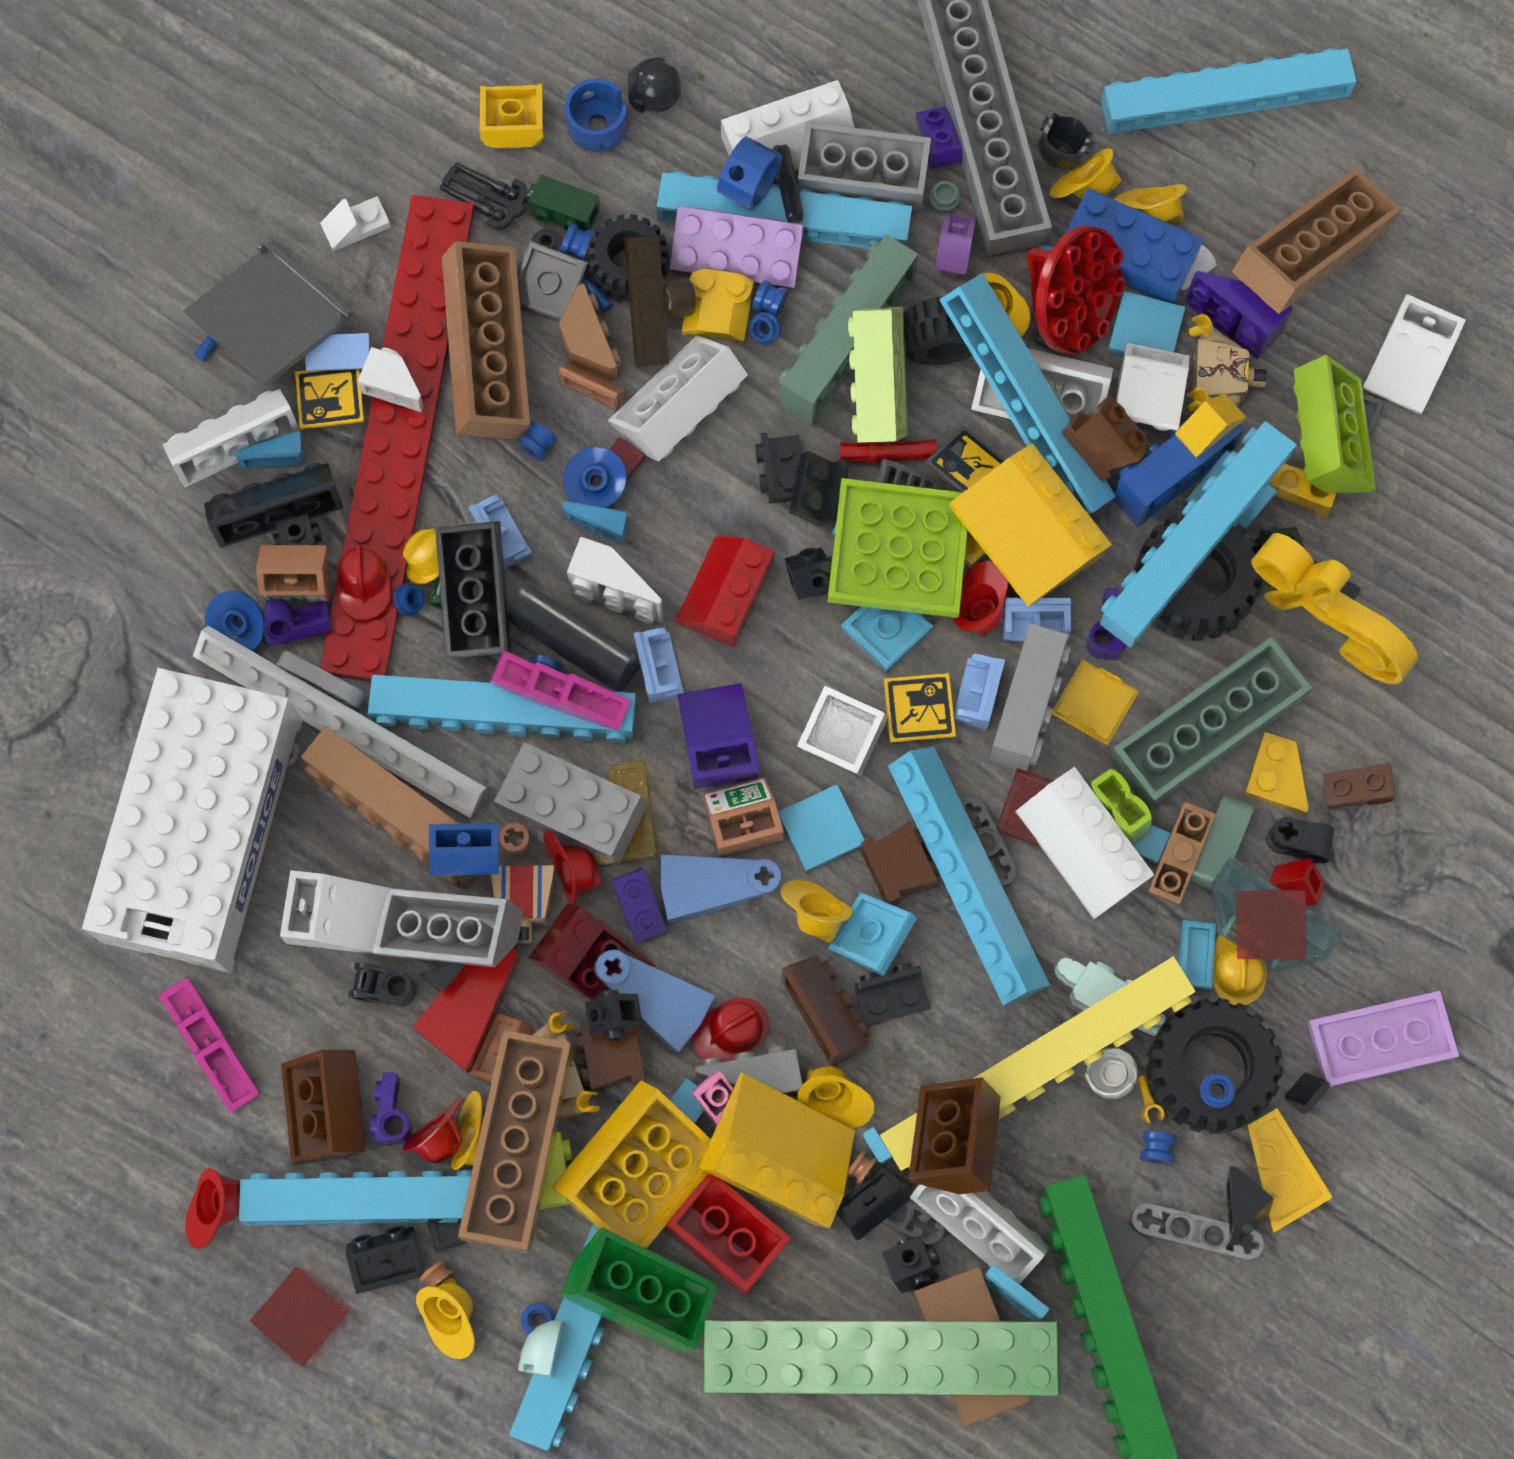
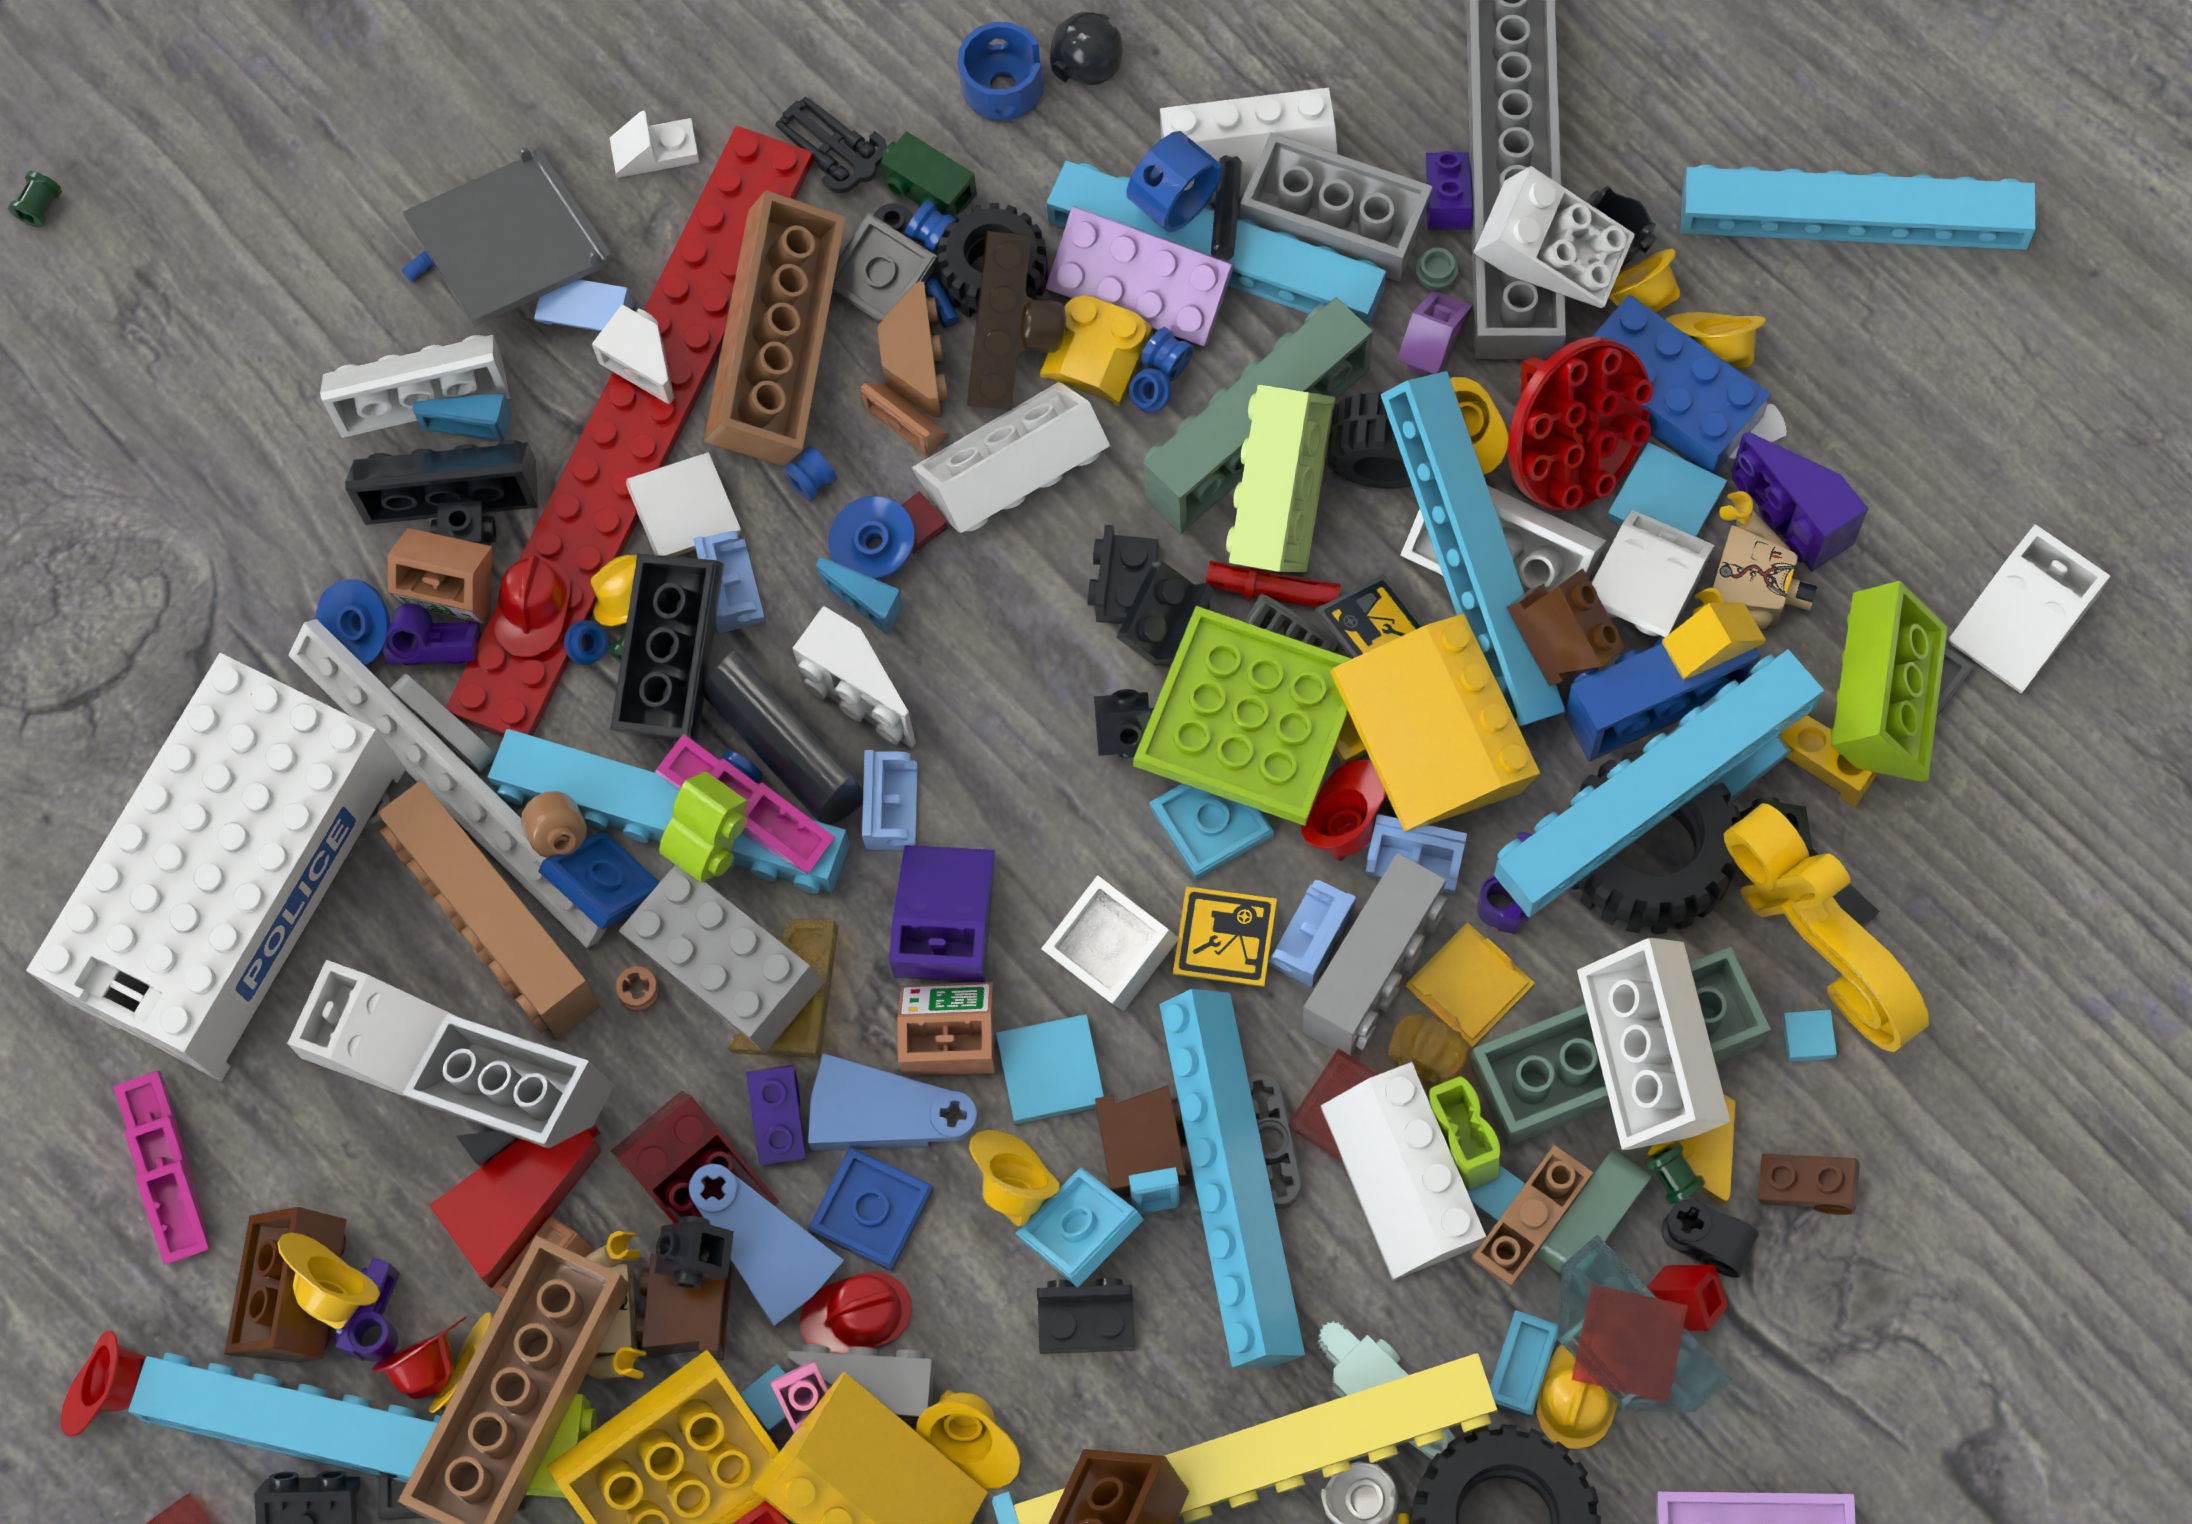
camera: 20 degrees right, 5 degrees down
(328, 398) = (554, 361): piece -> none
(357, 1099) = (324, 1282): none -> yellow piece
(375, 983) = (400, 1141): black piece -> none
(427, 736) = (553, 824): none -> medium nougat head
(451, 484) = (682, 504): none -> white tile
(463, 849) = (549, 980): blue brick -> none
(469, 767) = (600, 879): none -> blue tile
(511, 116) = (890, 51): yellow slope -> none
(528, 889) = (634, 1061): torso -> none
(539, 714) = (704, 827): none -> lime brick
(574, 867) = (705, 1043): red piece -> none
(721, 955) = (871, 1209): none -> blue tile
(726, 588) = (1009, 721): red slope -> none
(825, 1009) = (988, 1314): reddish brown slope -> none
(919, 896) = (1155, 1190): none -> medium azure tile
(1027, 159) = (1553, 239): none -> white slope
(1081, 751) = (1431, 1046): none -> clear yellow gear
(1237, 716) = (1653, 1044): none -> white slope
(1269, 801) = (1674, 1172): none -> dark green bush
(1316, 240) = (1923, 425): medium nougat brick -> none
(1334, 685) = (1809, 1035): none -> medium azure tile

